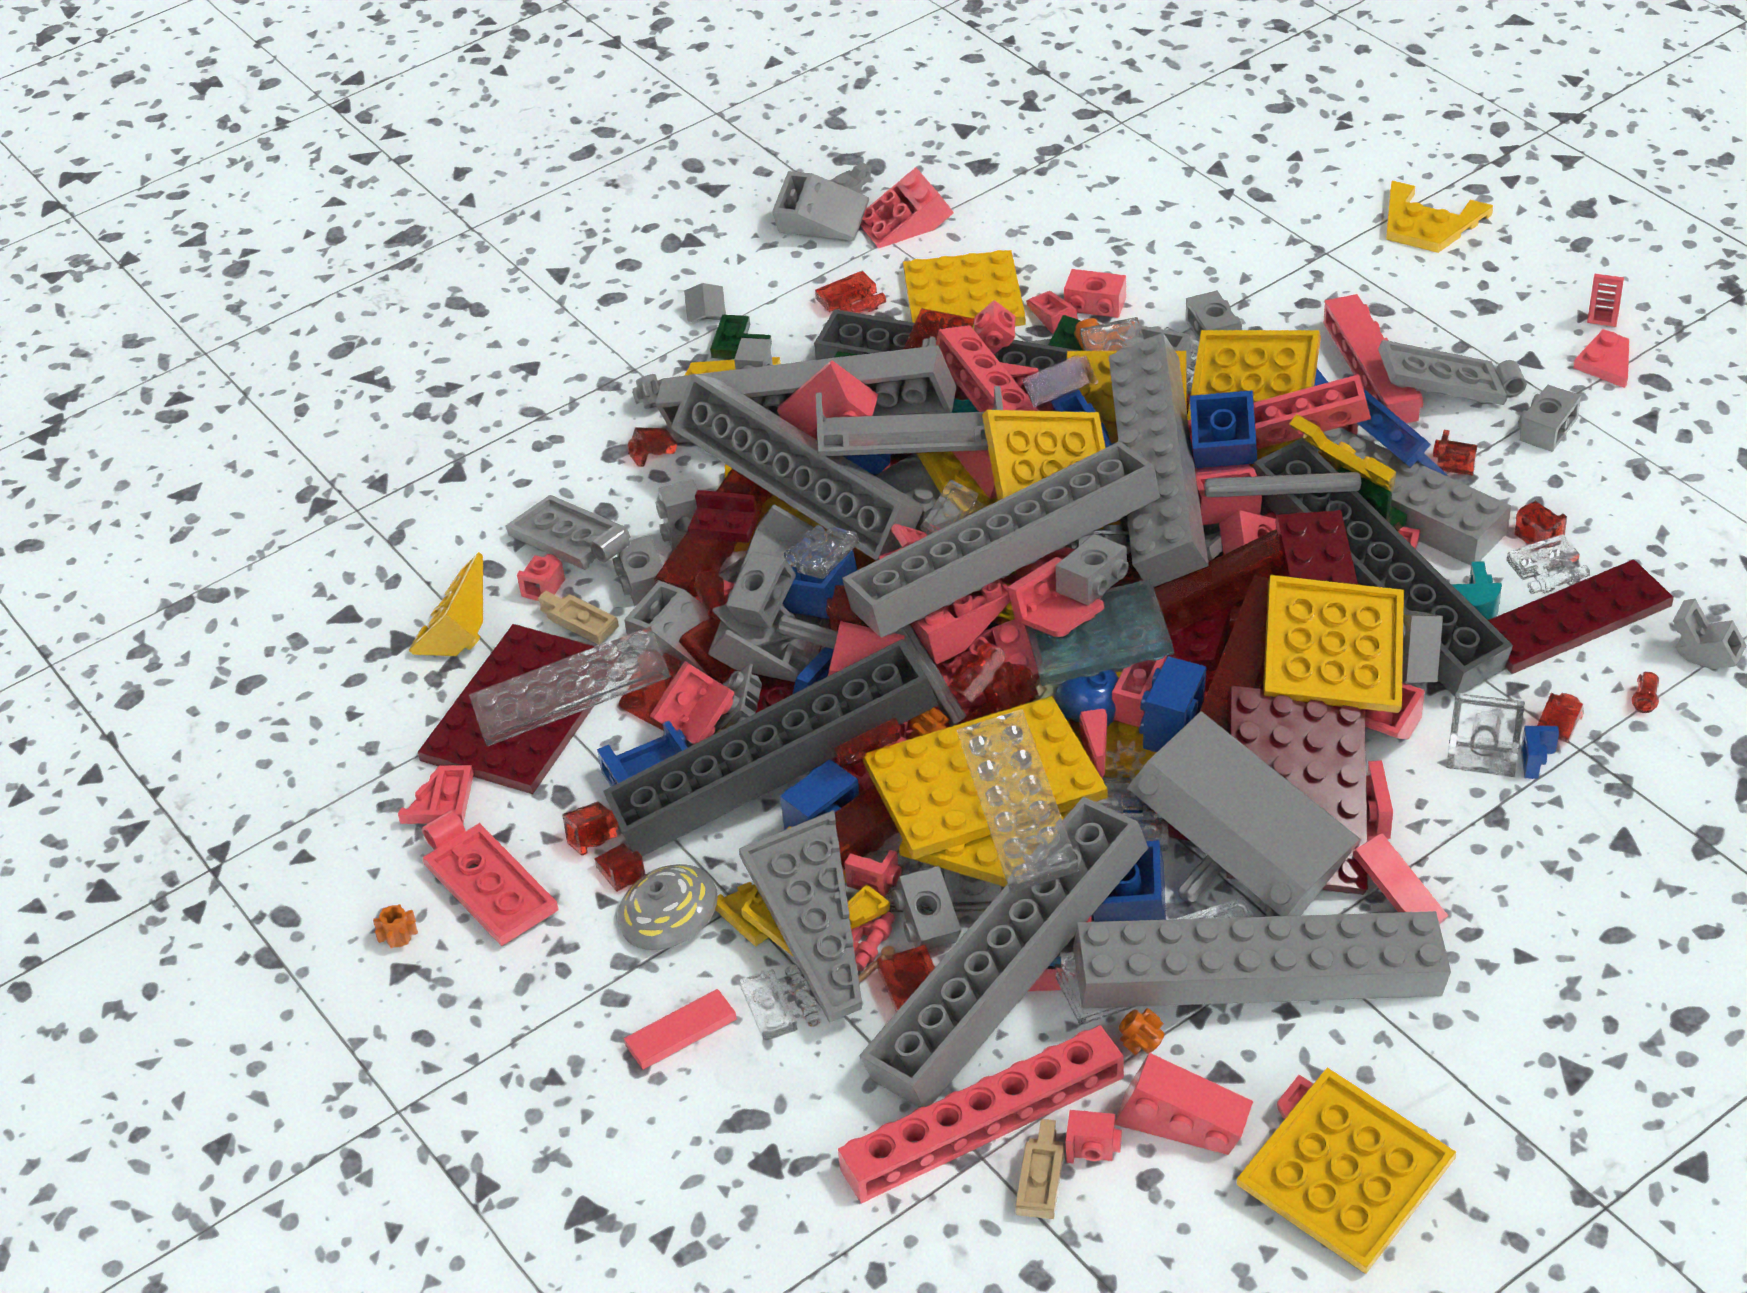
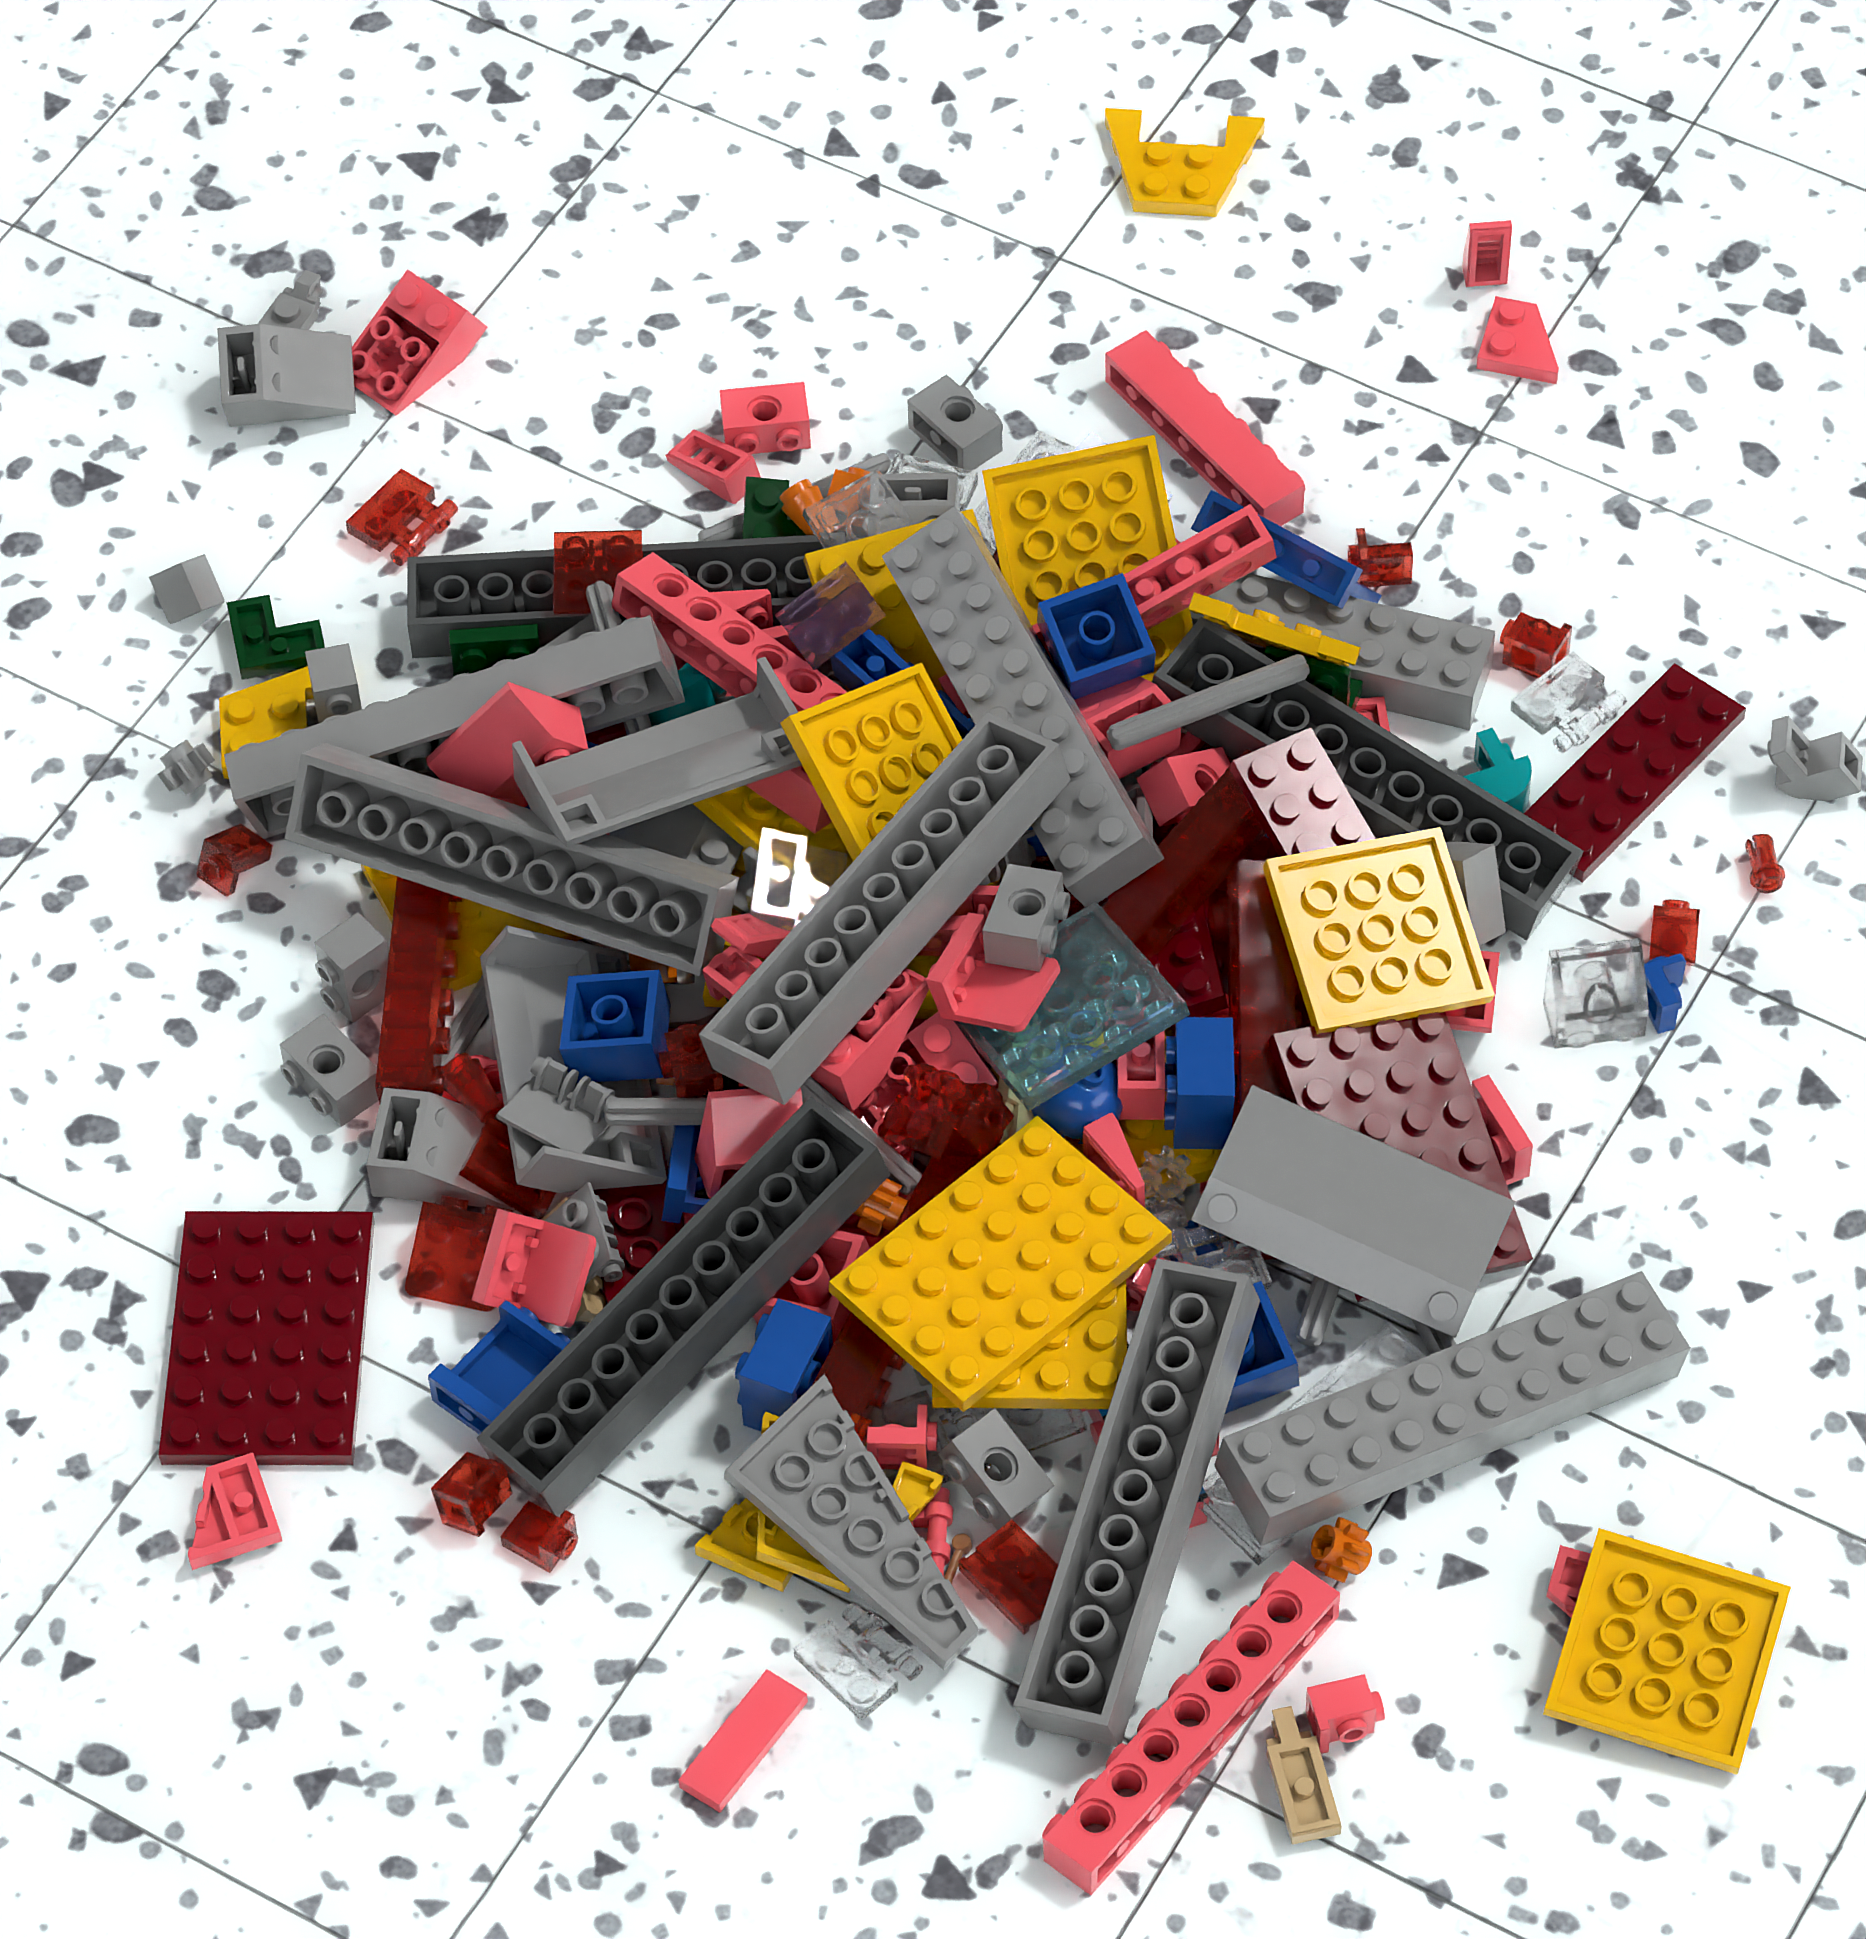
camera: 25 degrees left, 10 degrees up
(395, 926) = (278, 1711): orange gear -> none
(457, 616) = (95, 1221): yellow wedge -> none
(494, 892) = (385, 1619): coral hinge -> none
(546, 572) = (188, 1125): coral brick -> none
(569, 532) = (185, 1040): light grey hinge -> none
(569, 686) = (338, 1291): clear plate -> none
(578, 616) = (275, 1171): tan hinge -> none
(667, 907) = (651, 1593): light grey dish -> none
(724, 516) = (433, 962): dark red bracket -> none
(760, 589) = (572, 1095): light grey brick -> none
(821, 550) = (629, 987): clear plate -> none
(877, 738) = (836, 1251): clear red plate -> none
(964, 284) = (566, 464): yellow plate -> none
(995, 326) = (674, 533): coral brick -> none
(1017, 801) = (1076, 1291): clear plate -> none
(1183, 1107) = (1437, 1636): coral wedge -> none
(1396, 878) = (1570, 1238): coral tile -> none
(1451, 373) = (1327, 431): light grey hinge -> none
(1549, 417) = (1481, 466): light grey brick -> none

